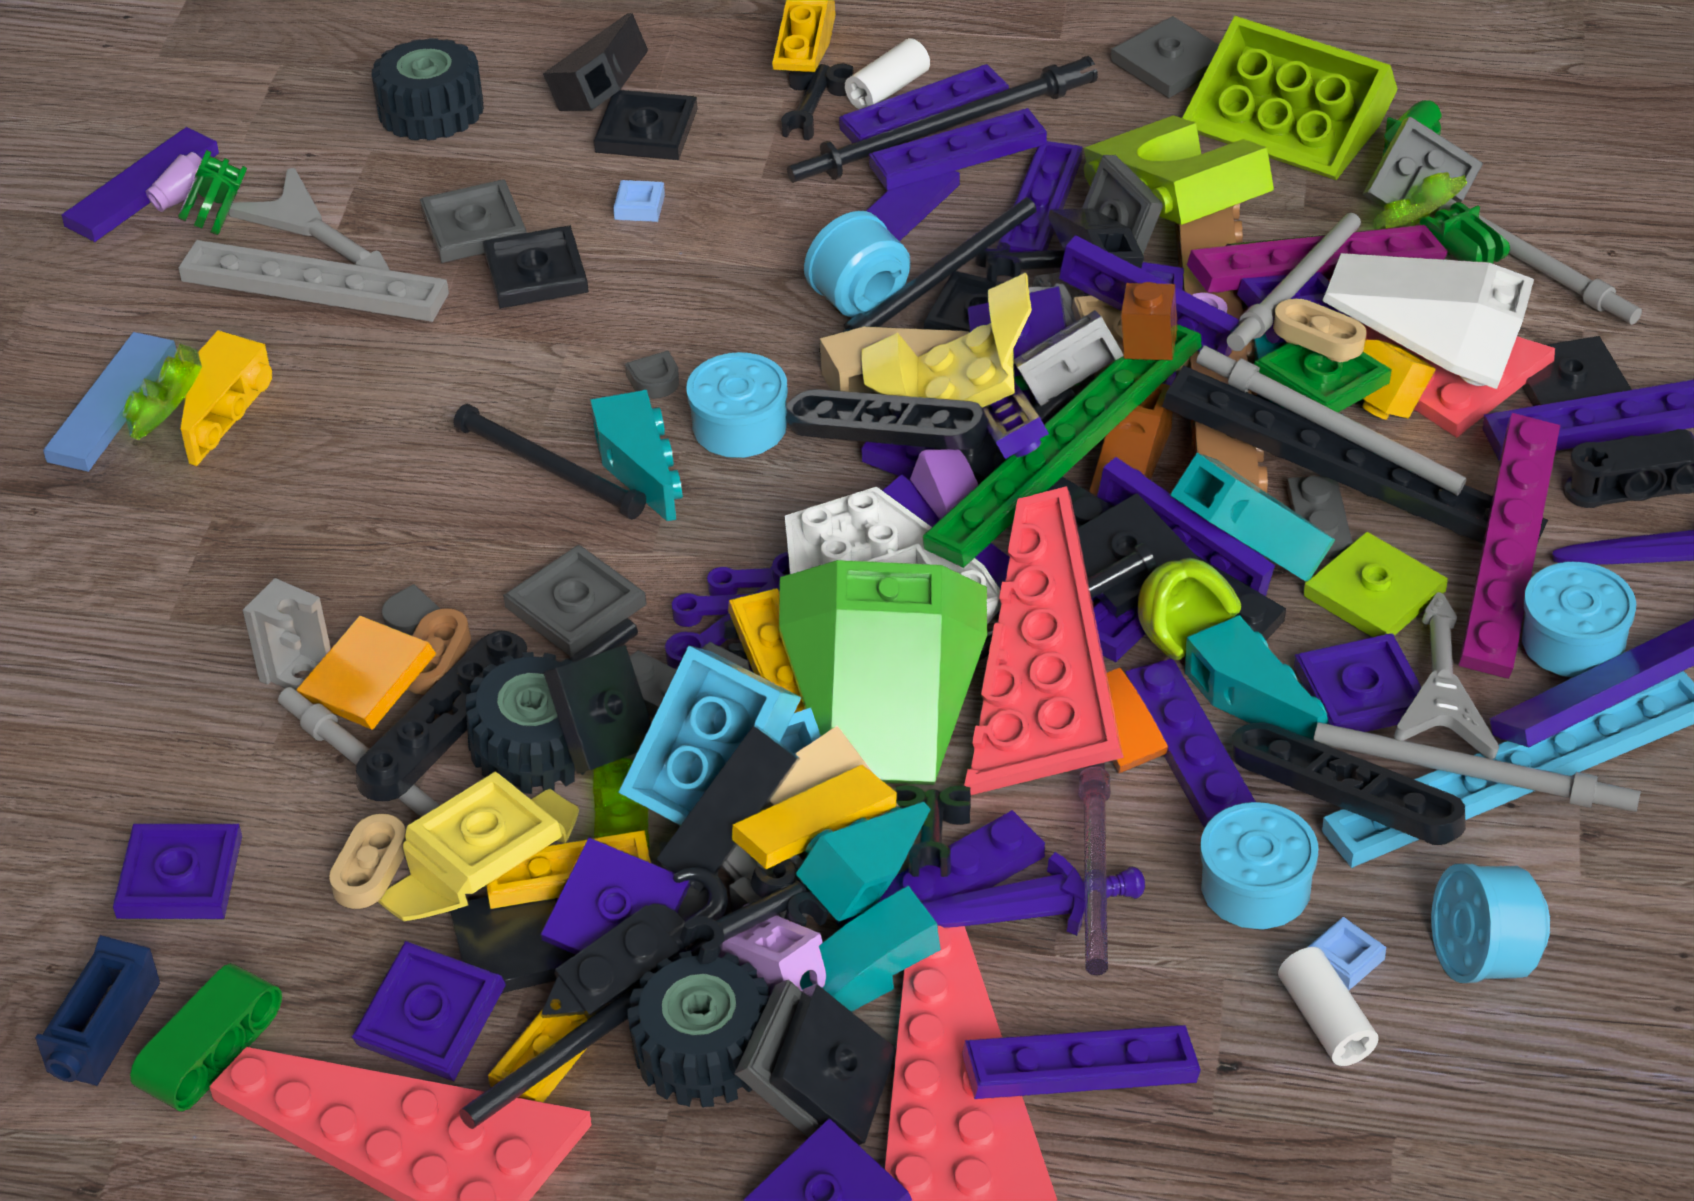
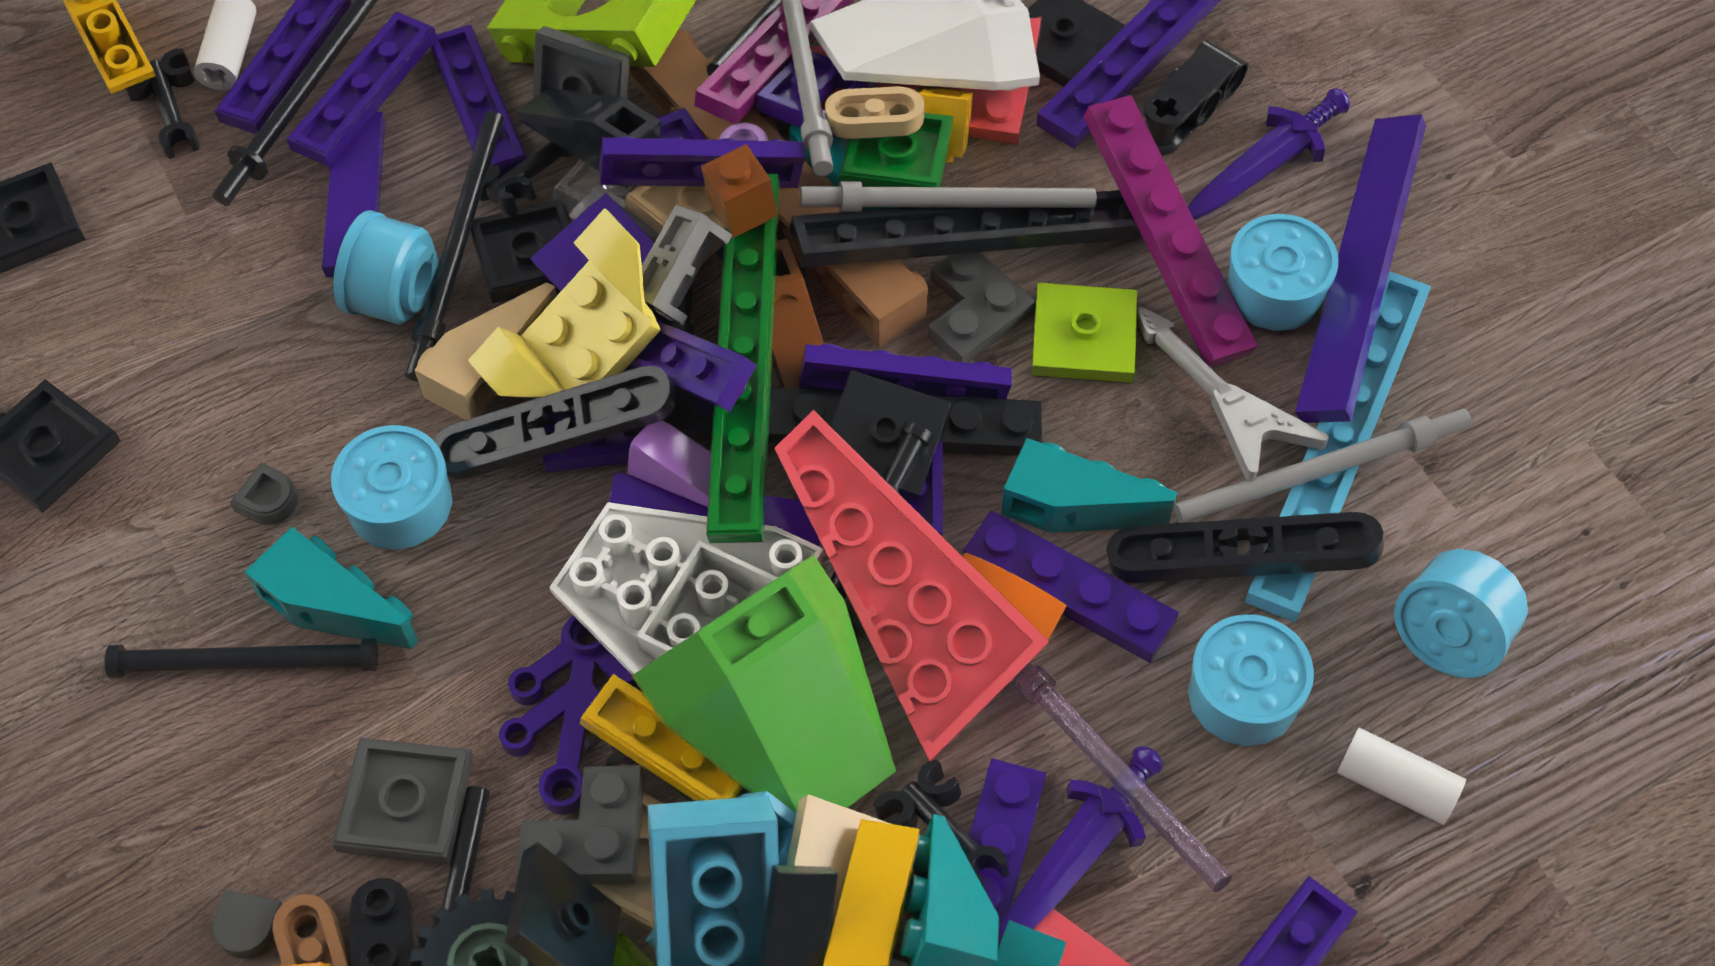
camera: 40 degrees left, 15 degrees up
(639, 200) = (86, 309): light blue tile -> none
(1182, 601) = (972, 454): lime piece -> none
(1252, 516) = (957, 331): teal slope -> none
(1350, 951) = (1360, 705): light blue tile -> none
(1360, 682) = (1159, 436): dark purple plate -> none

